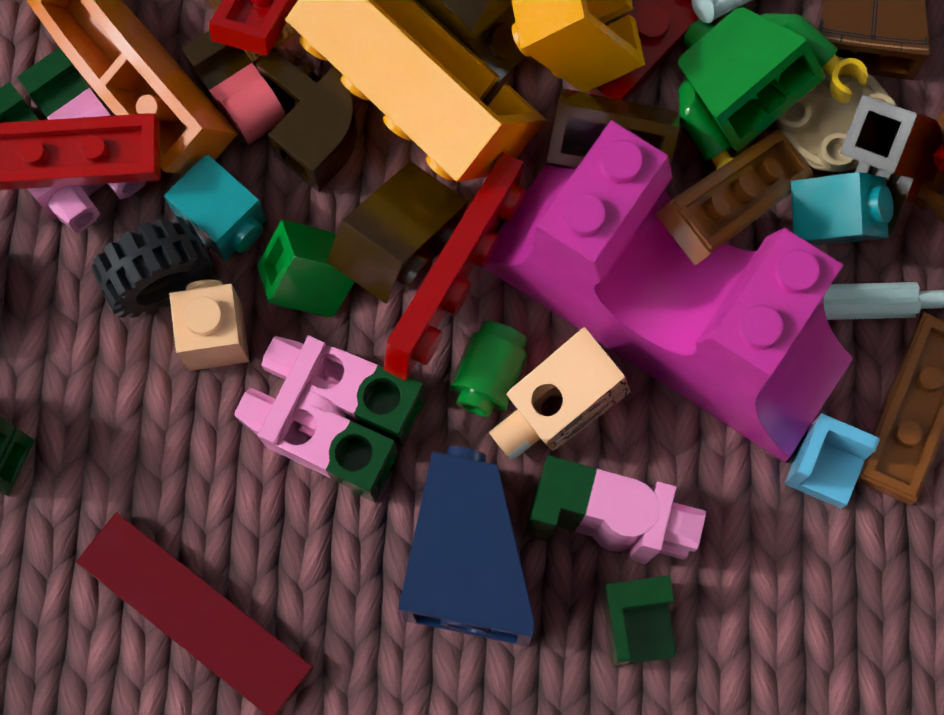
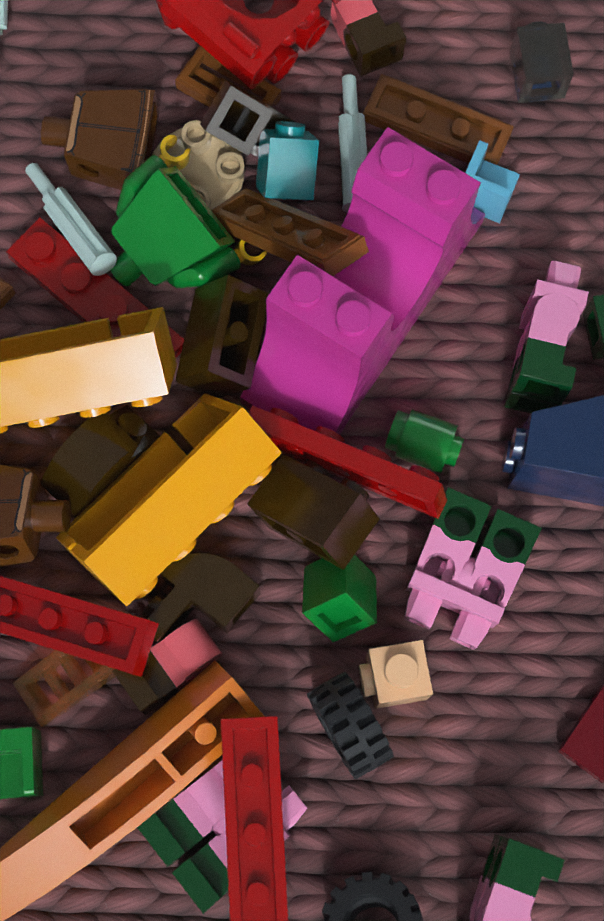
camera: 95 degrees left, 0 degrees up
(218, 207) = (287, 674): teal brick -> none
(579, 375) = (448, 359): light nougat torso -> none

